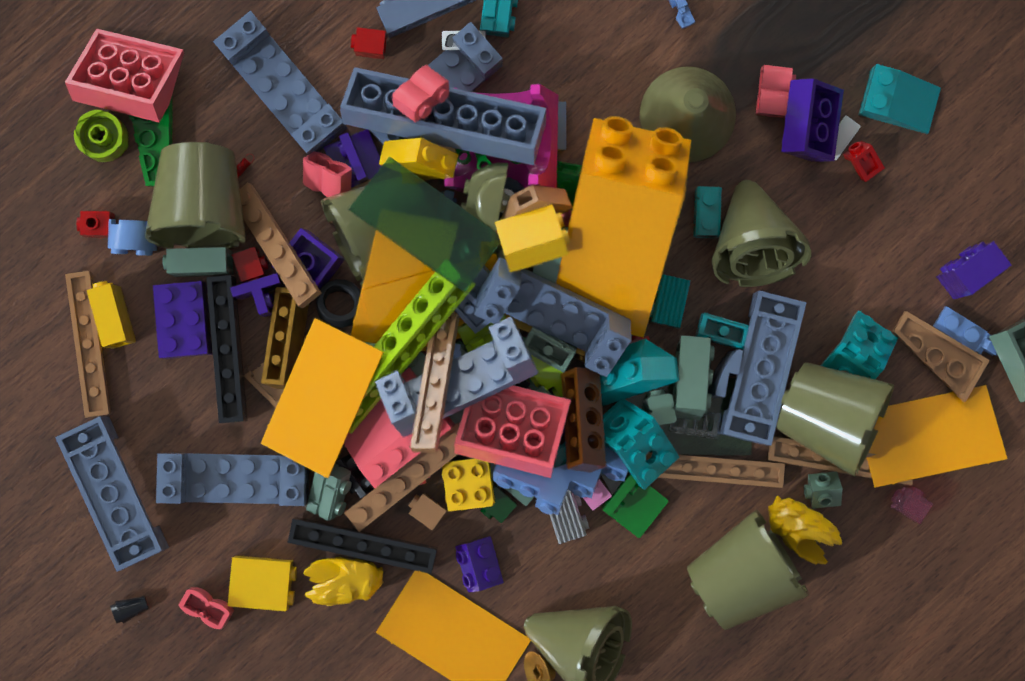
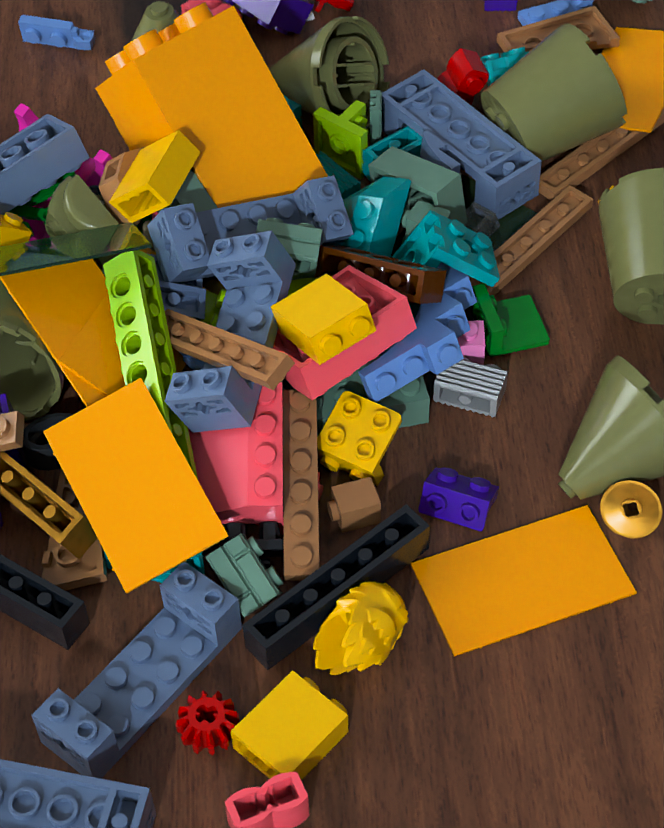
camera: 50 degrees left, 35 degrees down
(240, 530) = (207, 722): none -> red gear
(496, 432) = (323, 318): none -> yellow brick
(502, 508) = (410, 439): dark green brick -> none
(555, 350) = (299, 240): none -> sand green brick
(708, 288) = (342, 136): none -> lime bracket
(744, 296) = (375, 116): none -> sand green tile
(823, 490) = (620, 163): sand green brick -> none
(824, 328) = (465, 74): none -> red brick

